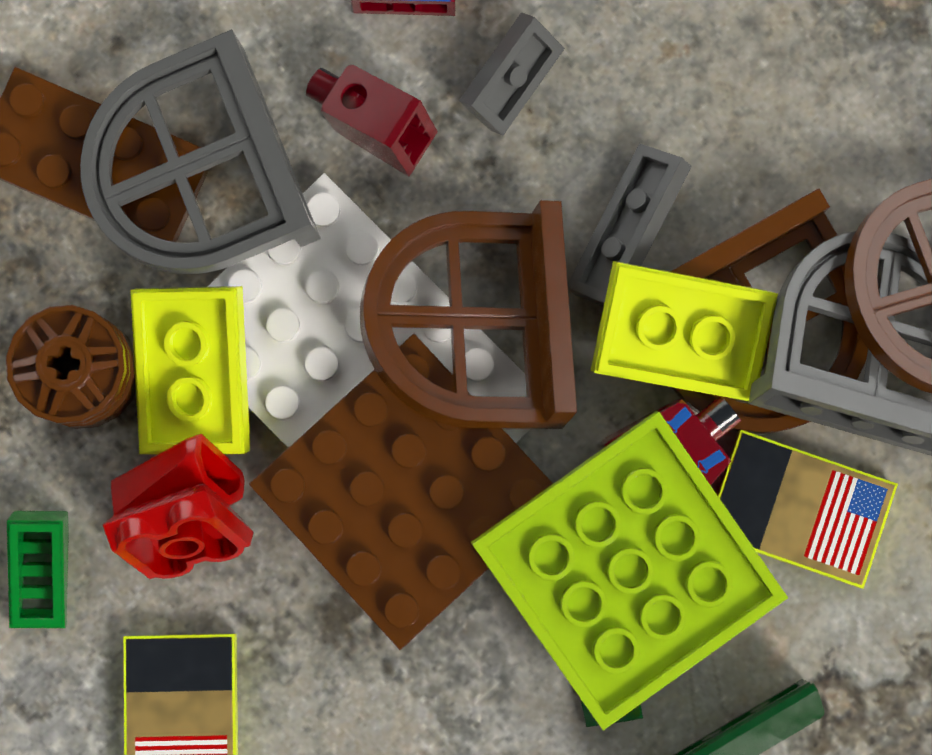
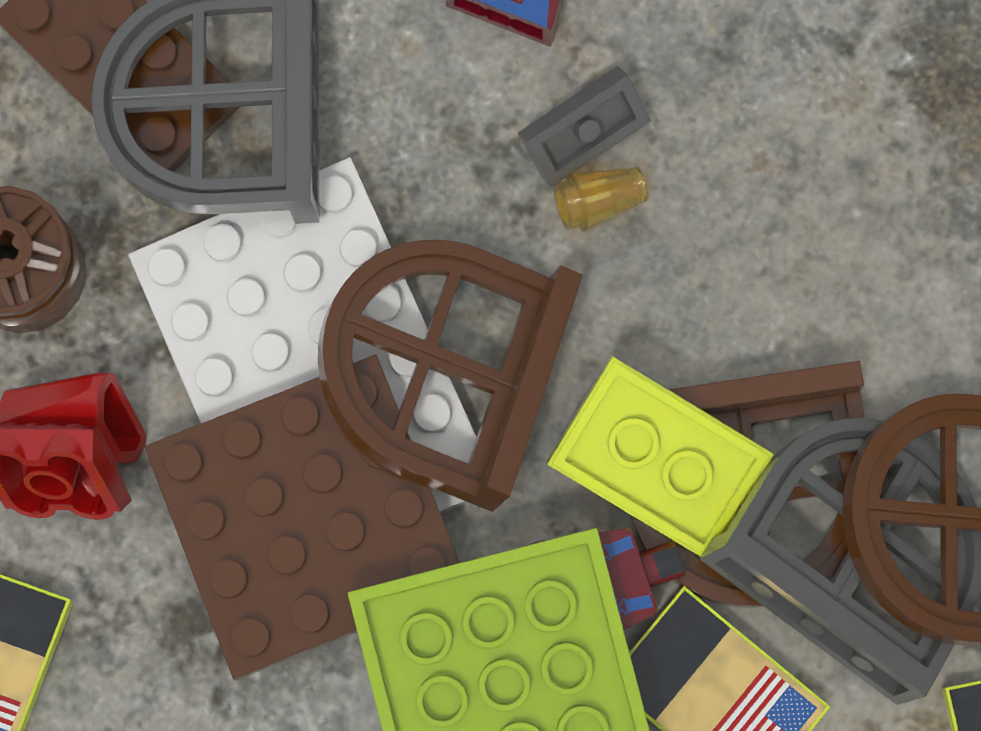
camera: 25 degrees right, 5 degrees down
(190, 367) = (133, 304): neon yellow tile -> none
(374, 115) = (424, 117): dark red torso -> none
(545, 129) = (597, 196): none -> clear yellow cone
(629, 220) = (651, 321): dark grey plate -> none

